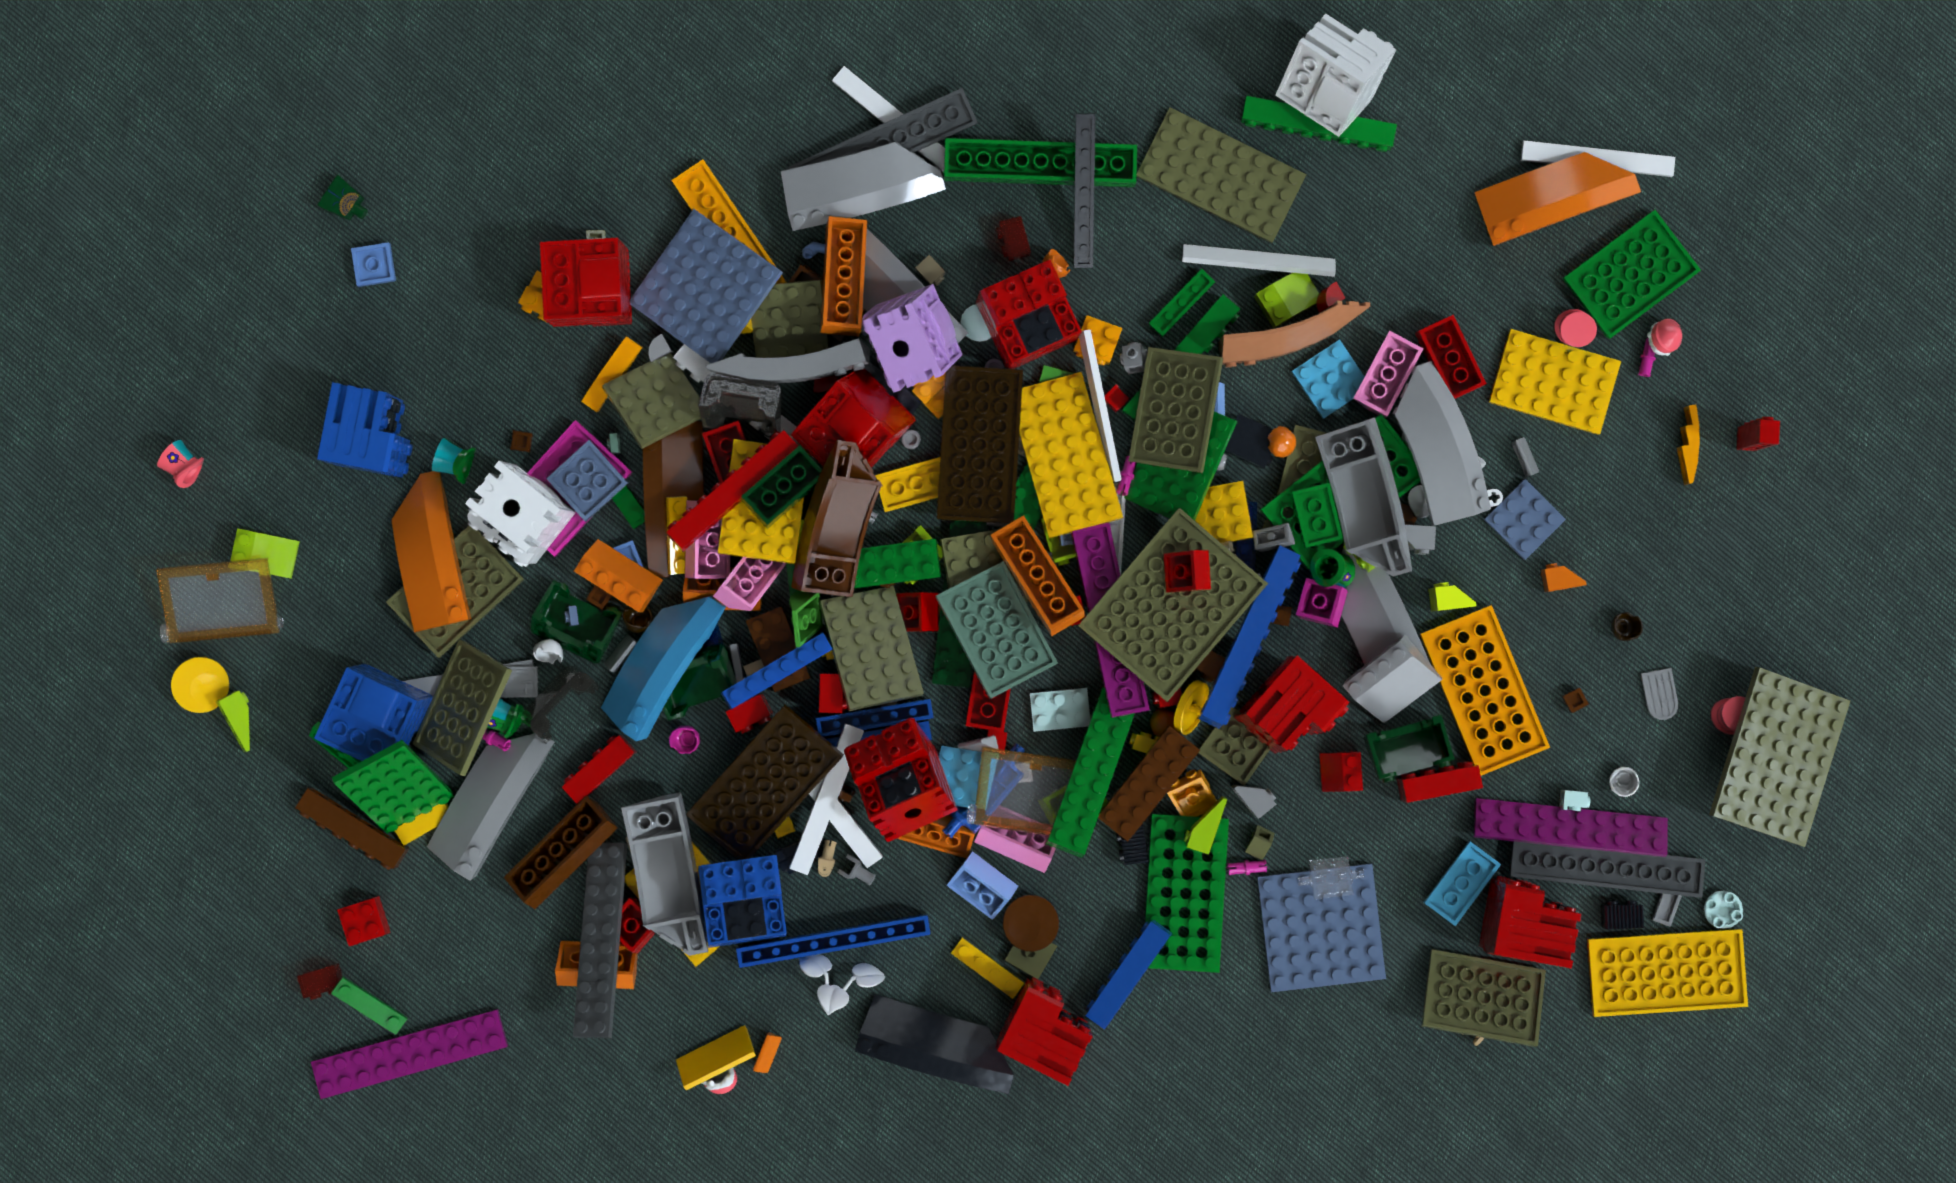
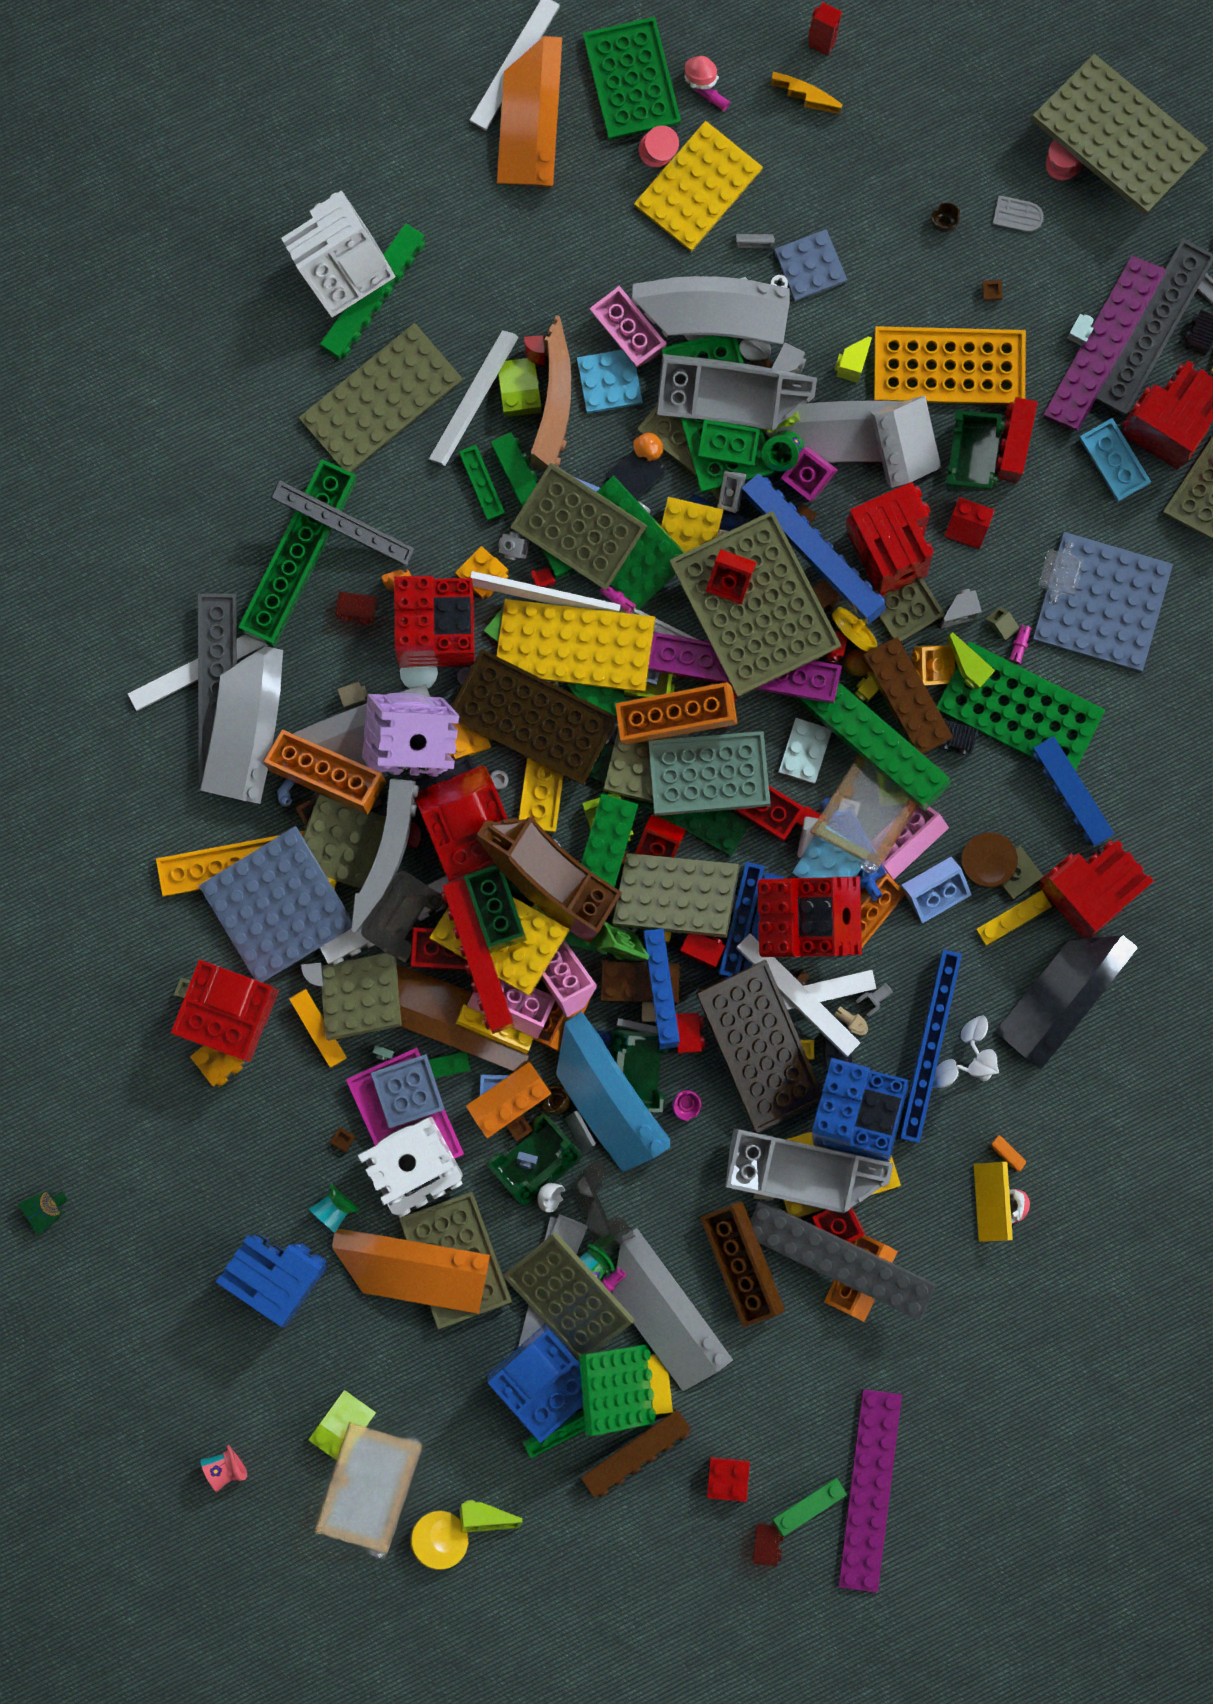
camera: 70 degrees left, 5 degrees down
(373, 264) = (116, 1207): medium blue plate -> none
(598, 769) = (680, 1198): red brick -> none
(1451, 355) = (636, 264): red brick -> none
(1559, 578) = (877, 256): orange slope -> none
(1624, 781) = (1083, 278): white hair -> none

